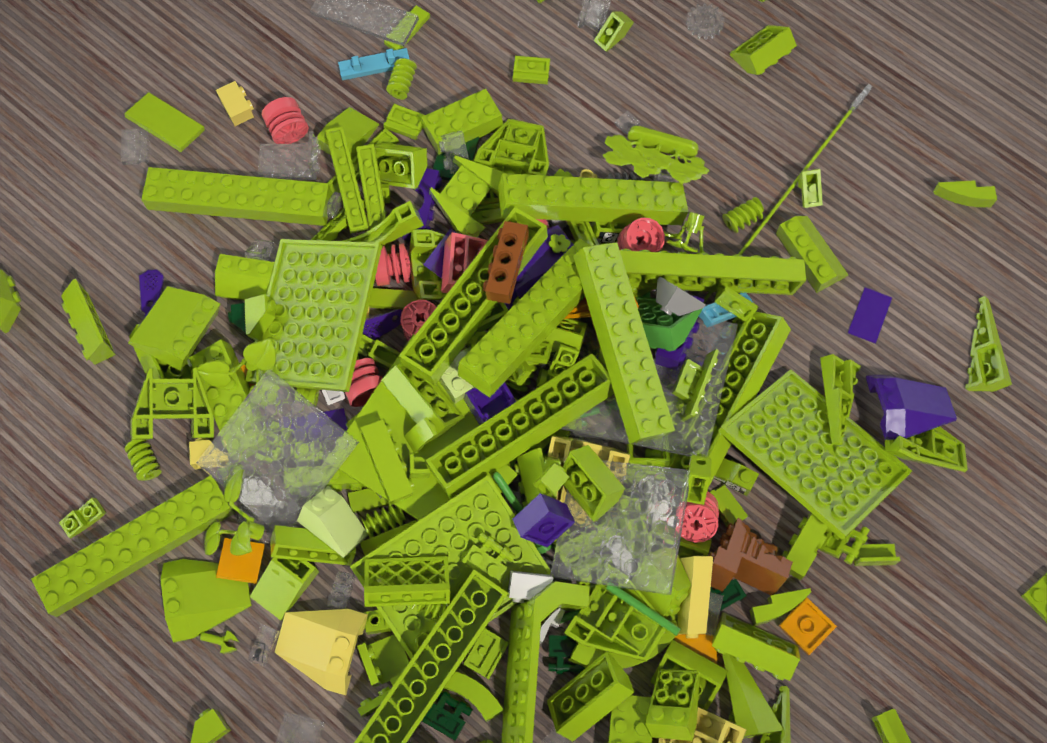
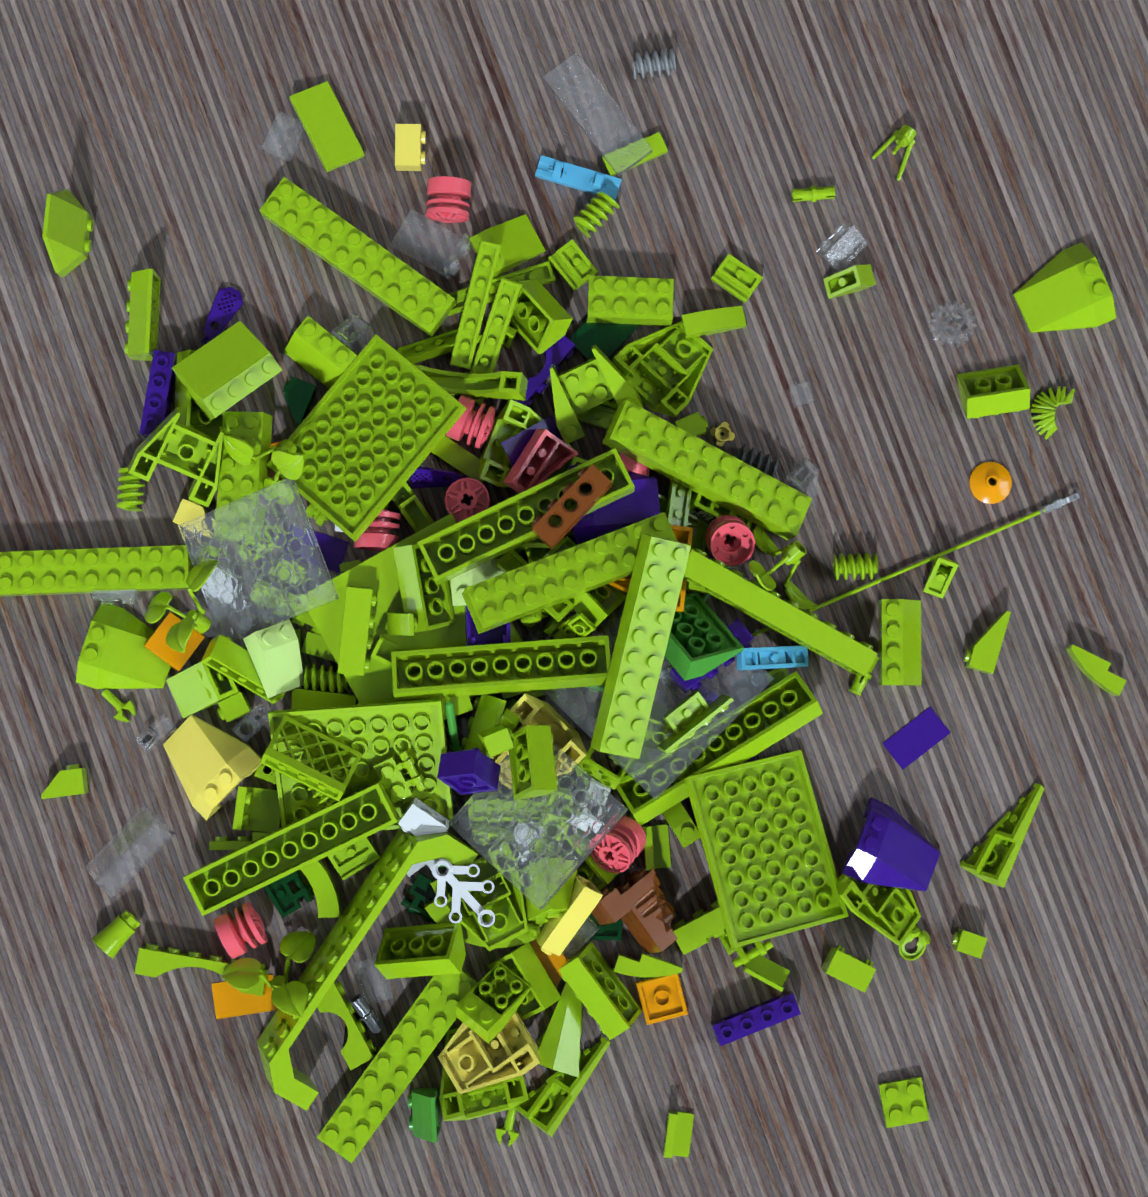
camera: 25 degrees right, 15 degrees up
(82, 518) = (48, 514): lime slope -> none
(127, 370) = (159, 391): none -> dark purple brick
(166, 552) = (108, 597): none -> clear plate
(259, 315) = (312, 407): lime slope -> none
(319, 586) = (234, 707): none -> lime brick
(334, 204) = (450, 321): clear tile -> none
(453, 145) = (602, 332): clear bracket -> none
(531, 106) = (713, 321): none -> lime slope
(559, 243) = (650, 503): lime plant -> none
(593, 622) = (460, 890): none -> white plant
(644, 609) = (515, 907): bright green bar -> none
(648, 157) = (794, 455): lime plant -> none
(675, 299) = (721, 628): light grey slope -> none
(701, 470) = (634, 815): lime torso -> none
(735, 303) = (782, 657): lime panel -> none
(798, 116) = (983, 490): none -> light orange dish
(802, 297) = (857, 687): none -> lime pin
(808, 41) = (1047, 408): none -> lime hair
(838, 387) = (837, 789): lime wedge -> none
(879, 224) = (986, 649): none -> lime slope
(892, 597) = (755, 1018): none -> dark purple brick
(939, 512) = (848, 968): none -> lime container
(979, 464) = (924, 939): none -> lime piece
(1015, 442) = (969, 943): none -> lime brick

